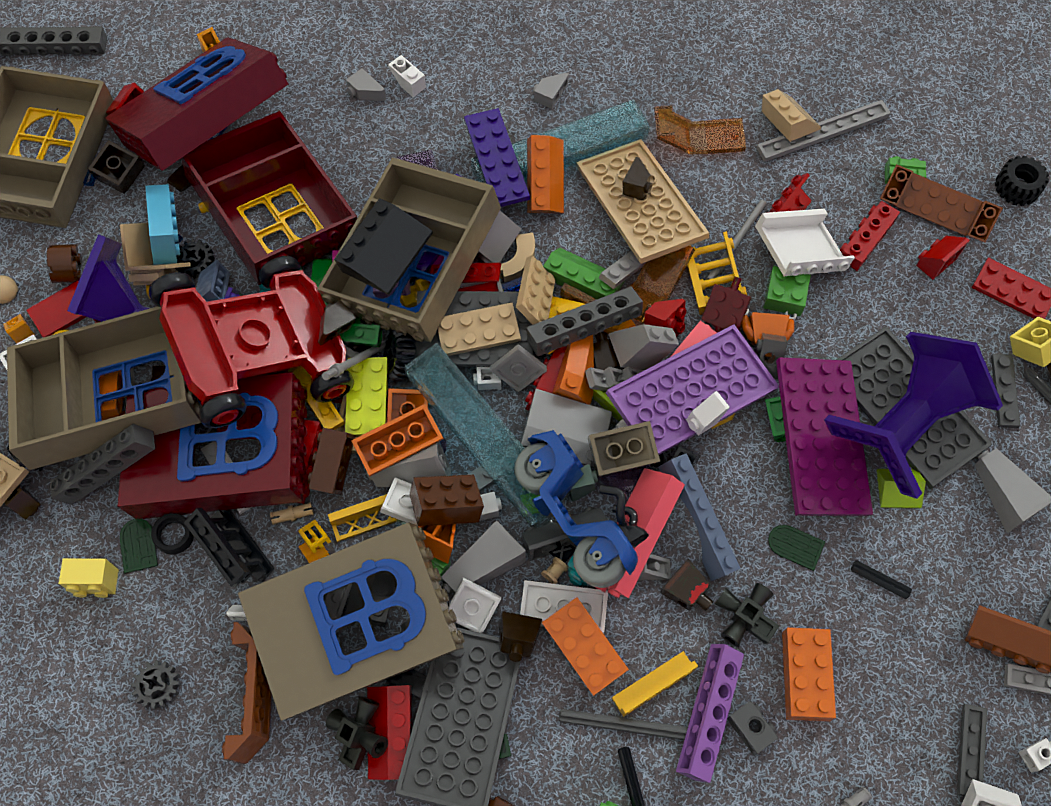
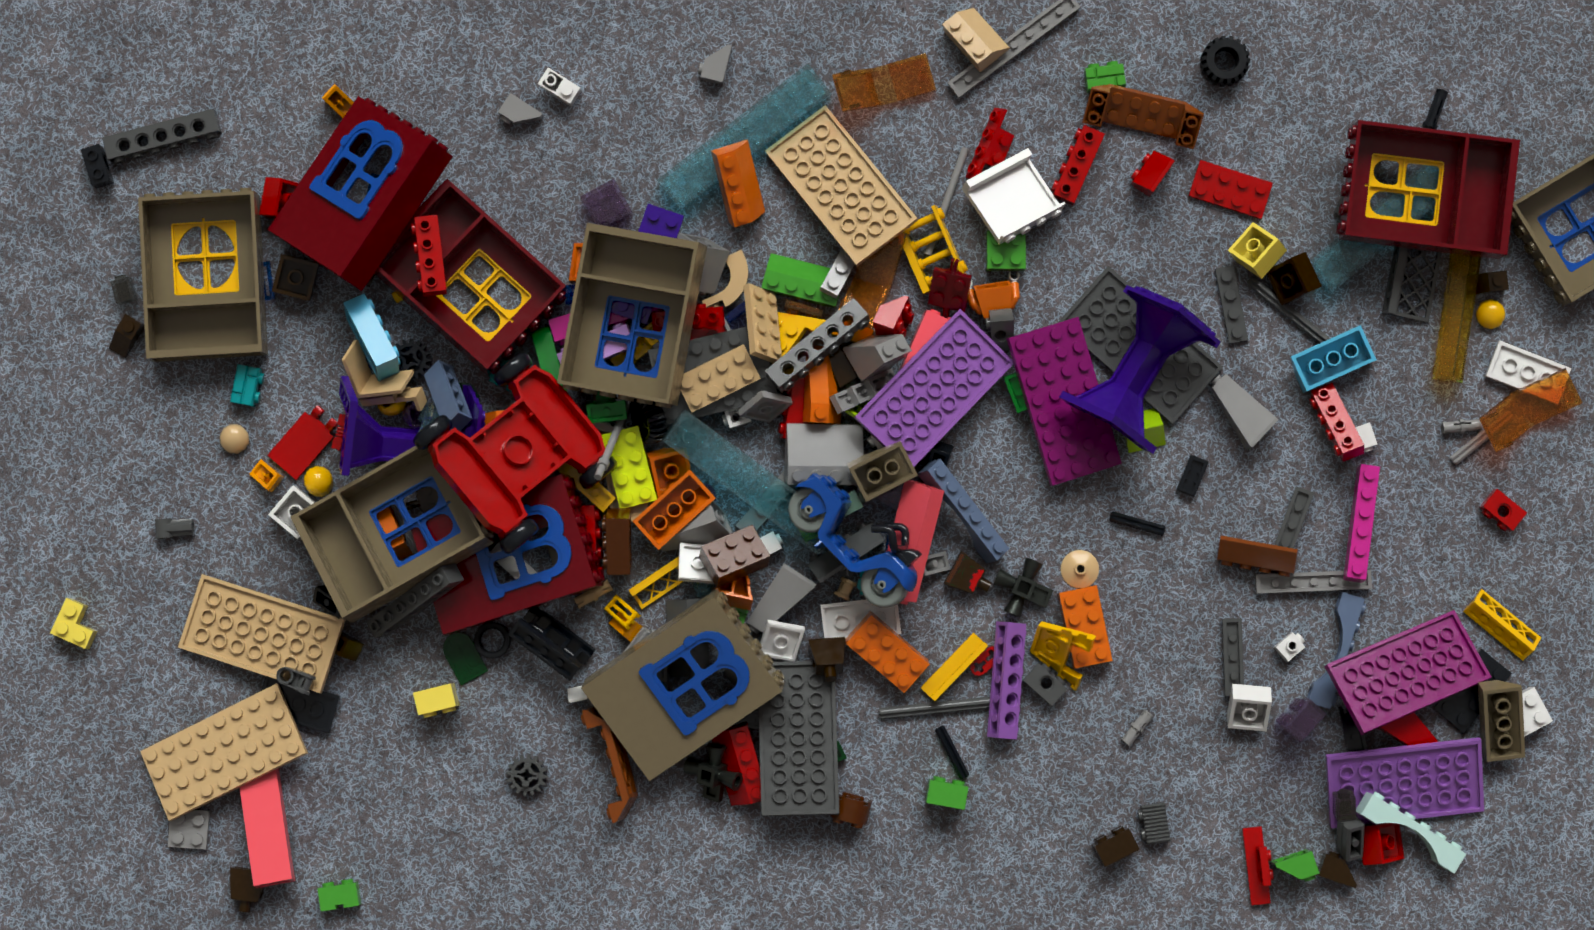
camera: 15 degrees left, 20 degrees up
(33, 246) = (247, 385): none -> teal brick
(64, 263) = (287, 399): reddish brown brick -> none
(237, 158) = (430, 255): none -> red brick
(335, 321) = (583, 413): slope -> none
(383, 246) = (611, 331): black slope -> none
(496, 156) = (684, 176): dark purple plate -> none
(637, 180) = (833, 170): dark brown slope -> none
(684, 682) = (989, 664): none -> red beam
(707, 413) = (951, 420): white slope -> none
(771, 684) = (1053, 646): none -> yellow wing
(796, 546) = (1056, 510): dark green window -> none
(803, 618) = (1070, 573): none -> tan dish
(947, 544) = (1192, 475): none -> black plate

